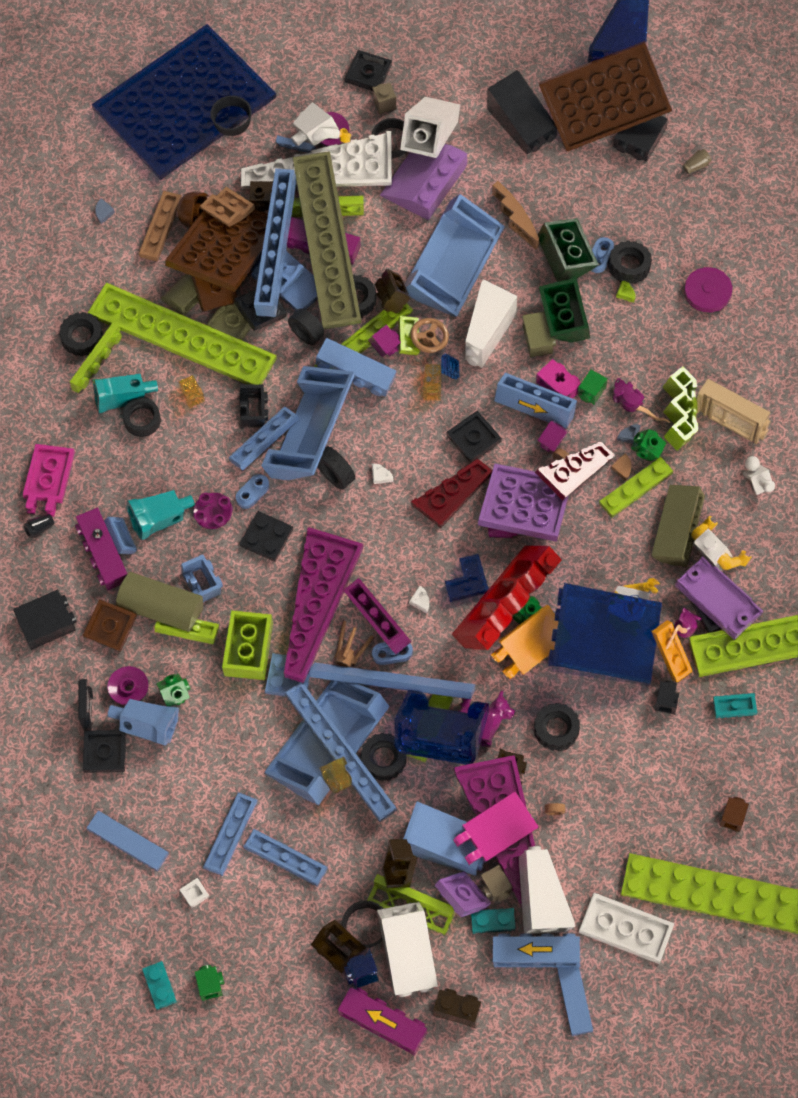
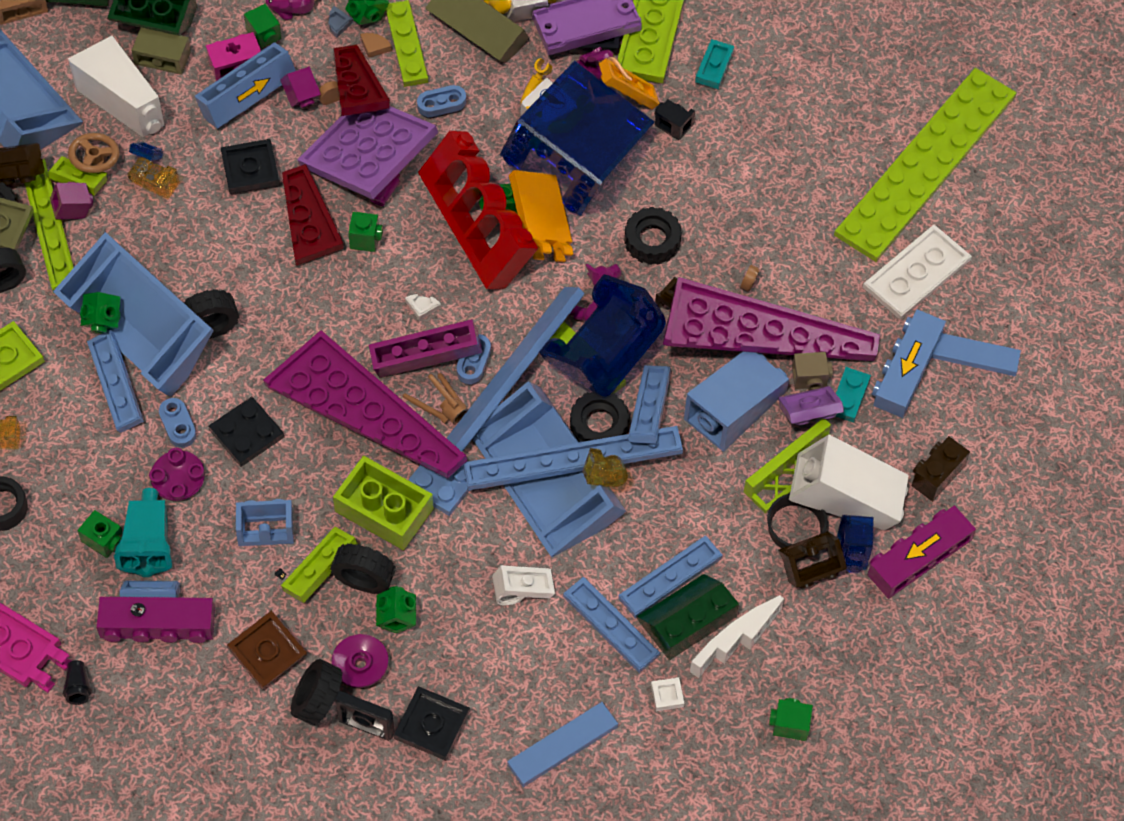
camera: 70 degrees left, 5 degrees down
(45, 619) = (214, 724): black brick -> none
(88, 668) = (316, 692): none -> black tyre
(146, 484) = (100, 534): none -> green brick
(146, 720) = (421, 654): medium blue piece -> none
(159, 601) = (269, 577): olive brick -> none
(159, 985) = (766, 780): teal plate -> none
(189, 654) = (363, 568): none -> black tyre
(231, 762) = (516, 582): none -> white plate
(252, 391) = (67, 363): black window -> none
(258, 880) = (689, 615): none -> dark green slope
(263, 924) = (742, 631): none -> white slope
(302, 402) = (100, 312): none -> green brick
(367, 371) = (64, 252): medium blue brick -> none
(381, 474) = (238, 280): white tile -> none
(399, 864) = (747, 461): dark brown window -> none
(408, 783) = (649, 404): none -> medium blue tile
(456, 533) = (364, 231): none -> green brick
(471, 584) = (431, 243): clear blue plate -> none
(497, 828) = (756, 332): dark pink tile -> none
(542, 895) = (854, 319): white slope -> none
(598, 533) = (441, 100): none -> medium blue plate
(734, 814) = (838, 116): reddish brown brick -> none

